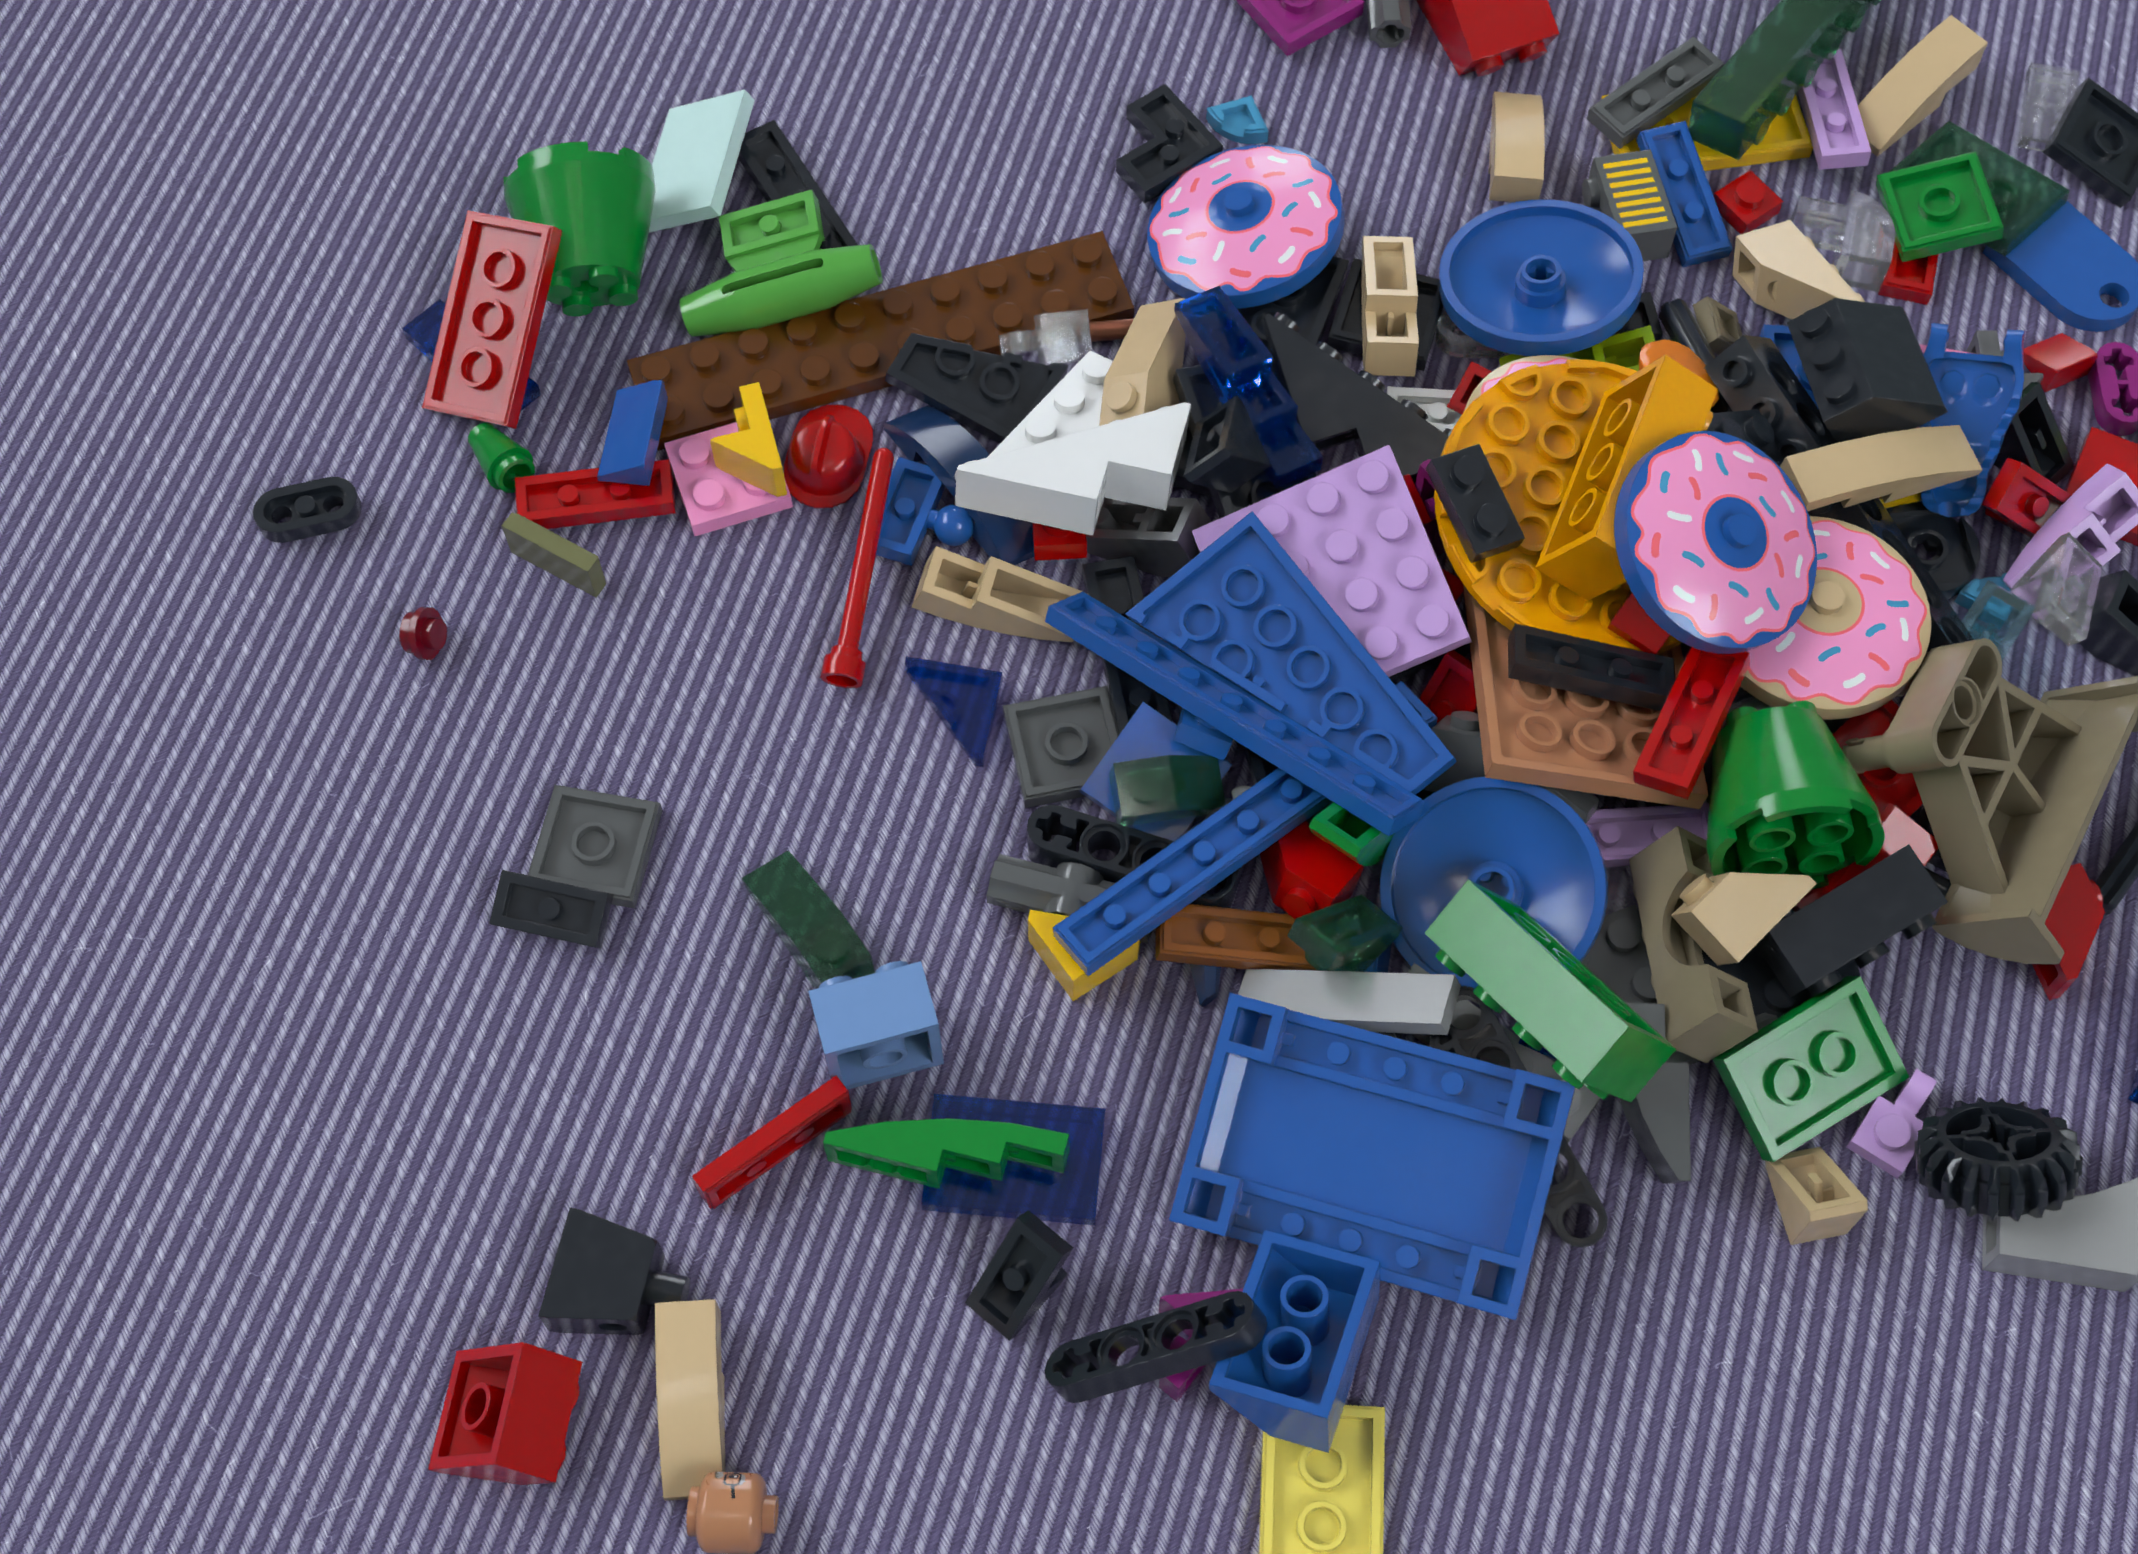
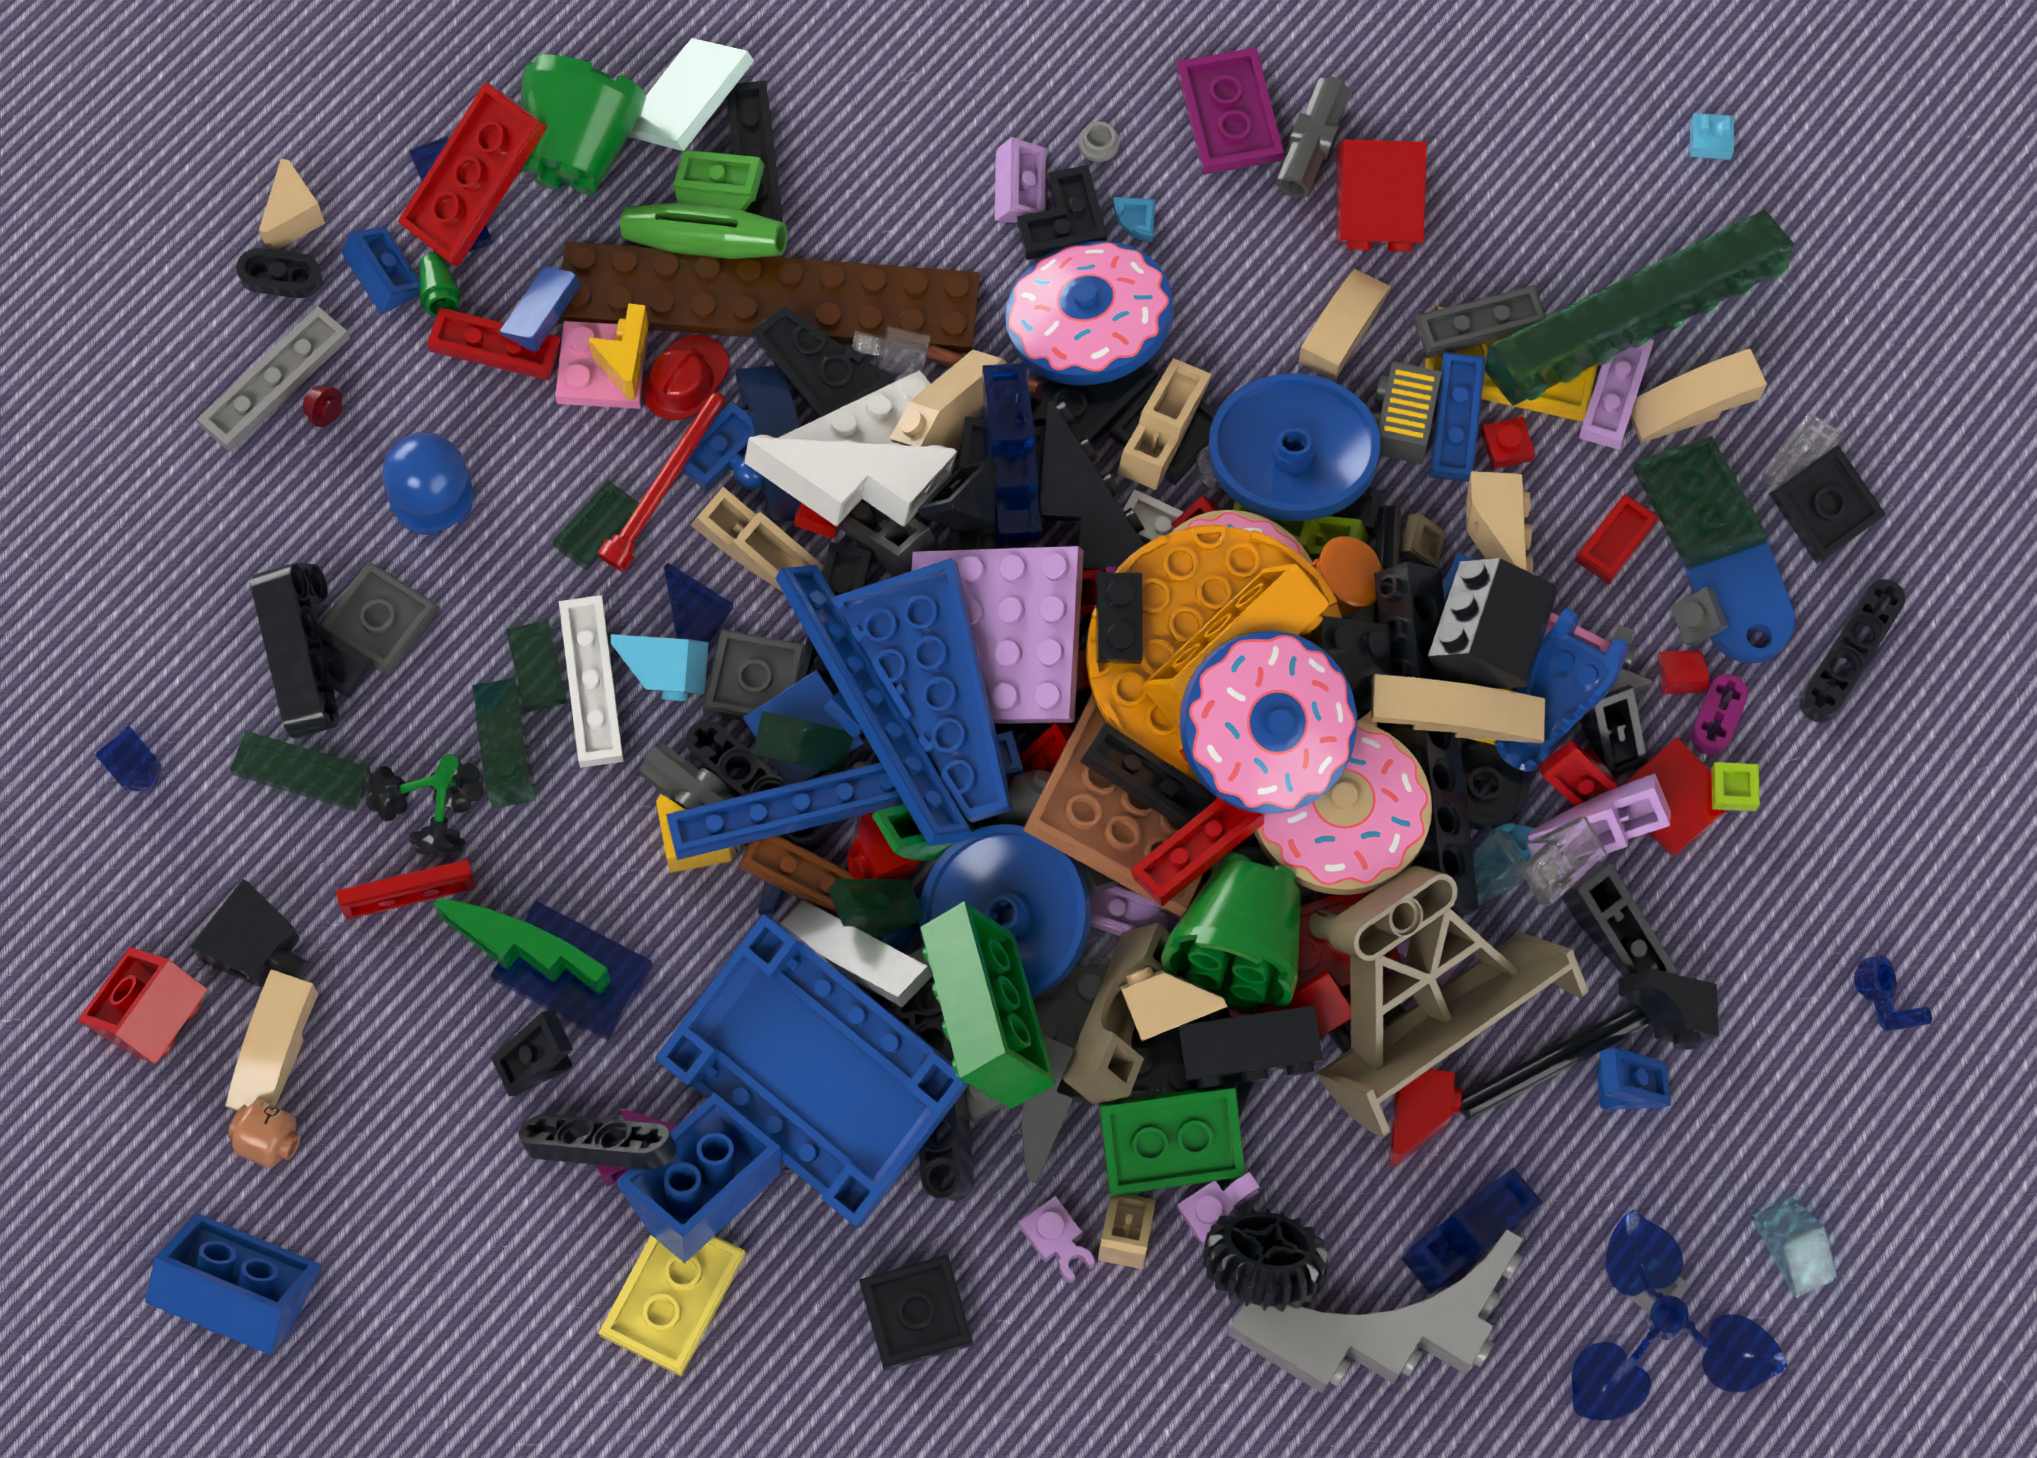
camera: 20 degrees right, 5 degrees up
(292, 435) = (289, 210): none -> tan slope
(350, 627) = (273, 378): none -> light grey plate
(364, 1125) = (130, 761): none -> clear blue plate
(424, 465) = (381, 268): none -> blue slope
(514, 912) = (295, 646): none -> black beam
(554, 554) = (443, 380): olive tile -> none
(578, 1056) = (300, 770): none -> clear green tile
(588, 670) = (427, 483): none -> blue tile
(774, 1007) = (453, 786): none -> black plant
(800, 649) = (597, 520): none -> clear green tile
(807, 827) = (536, 666): none -> clear green tile
(877, 1024) = (511, 834): medium blue brick -> none
(881, 820) = (591, 681): none -> white plate
(961, 763) = (665, 664): none -> medium azure slope
(1094, 128) = (1019, 180): none -> lavender slope
(1162, 60) = (1098, 142): none -> light grey plate
(1623, 1396) = (916, 1312): none -> black plate
(1728, 1234) = (1054, 1233): none -> lavender plate
(1856, 232) = (1576, 504): clear brick -> none
(1940, 206) = (1652, 508): green tile -> none
(2044, 297) = (1699, 616): none -> dark grey plate

